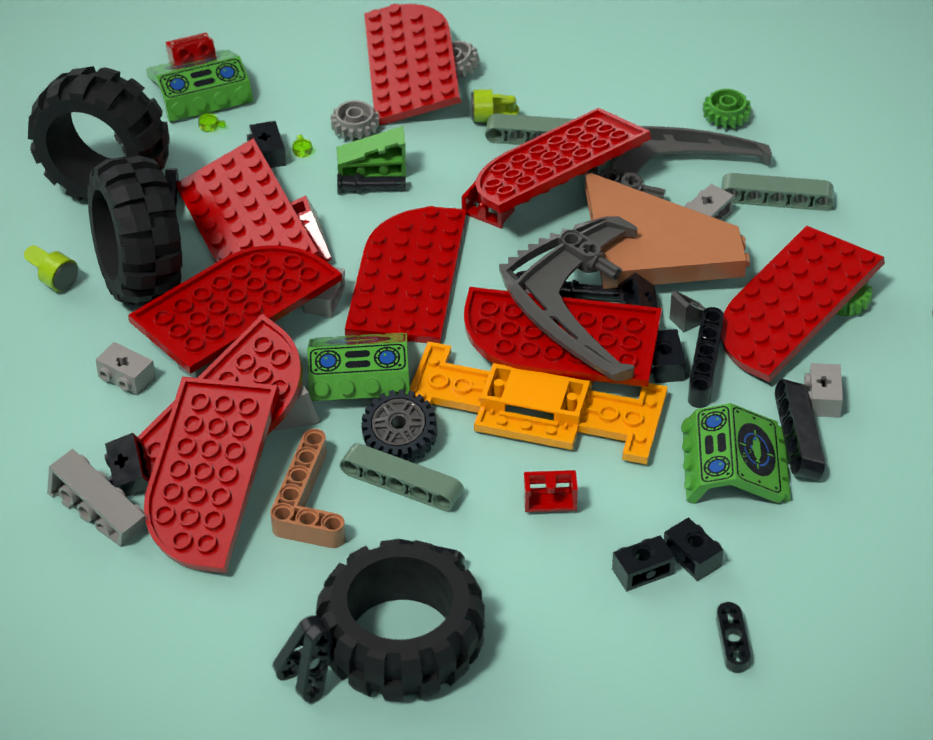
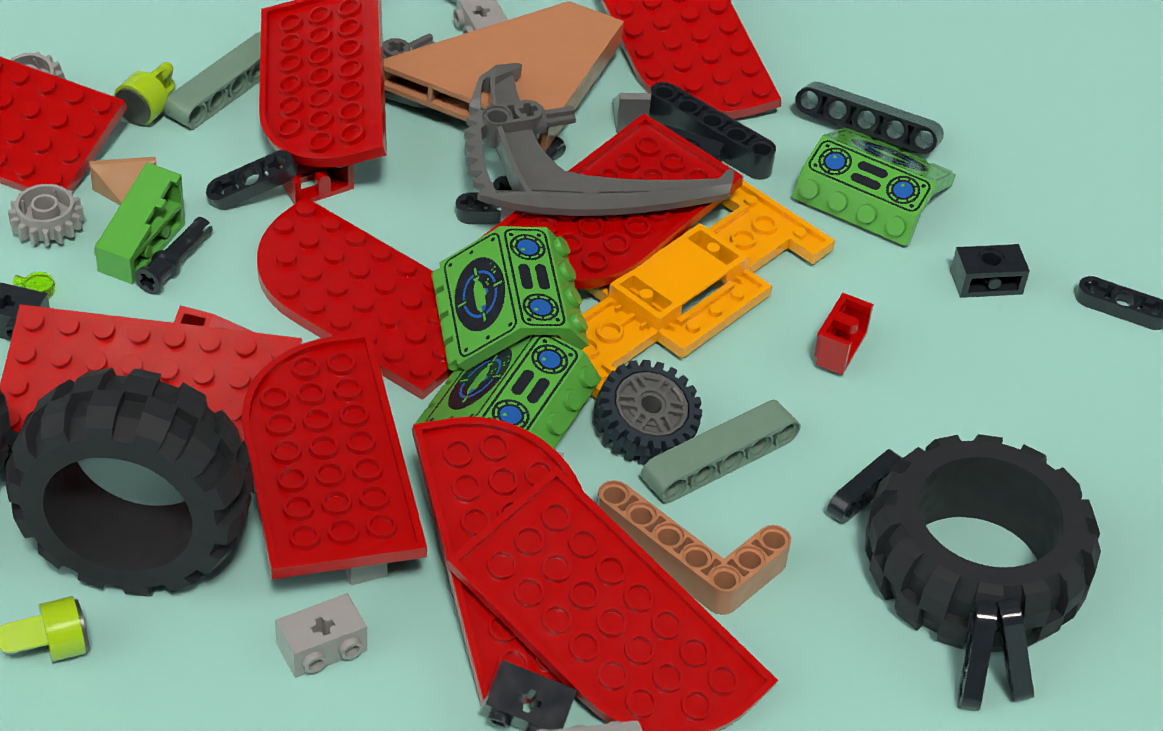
camera: 65 degrees left, 0 degrees up
(416, 136) = (116, 176): none -> medium nougat slope
(436, 322) = (504, 290): none -> bright green hinge
(452, 179) = (227, 182): none -> black beam
(637, 291) = (588, 131): black brick -> none
(643, 563) = (986, 316): black brick -> none
(825, 389) = (821, 66): light grey brick -> none

